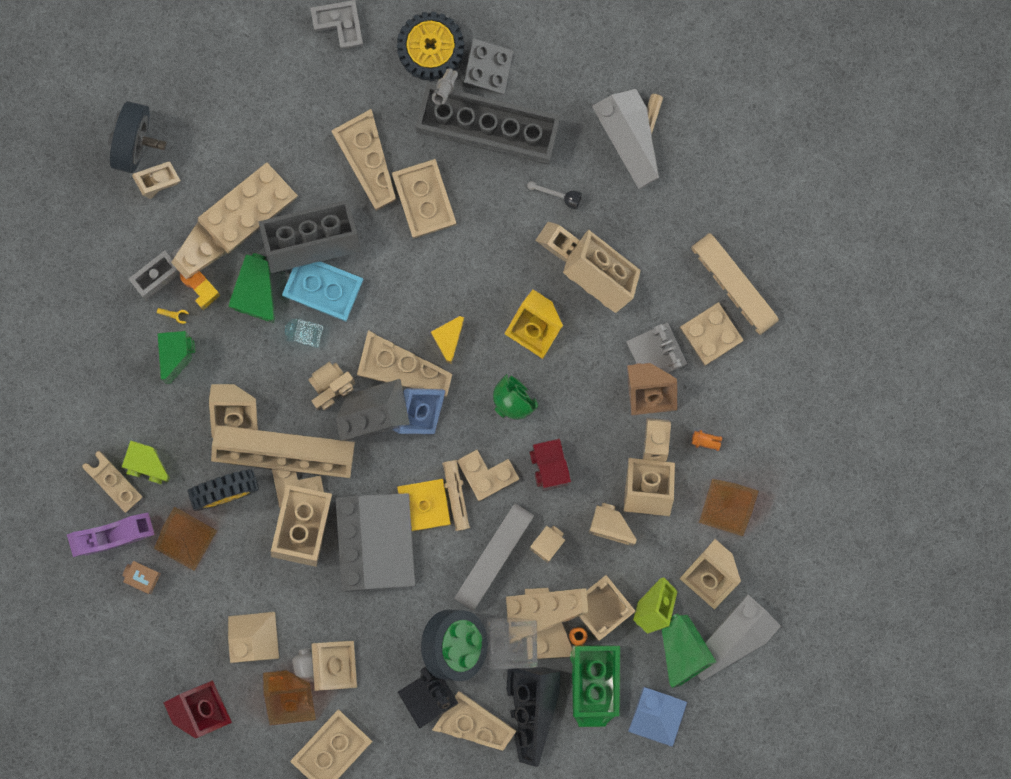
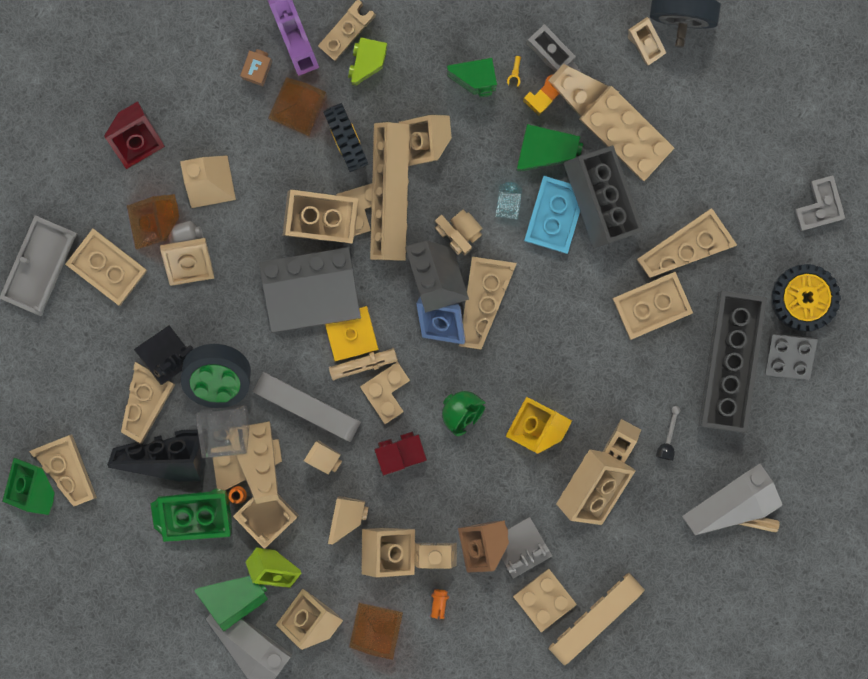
camera: 90 degrees right, 5 degrees up
(444, 87) = (764, 315): light grey axle -> none
(447, 337) = (516, 341): yellow slope -> none
(657, 716) = (167, 578): medium blue slope -> none

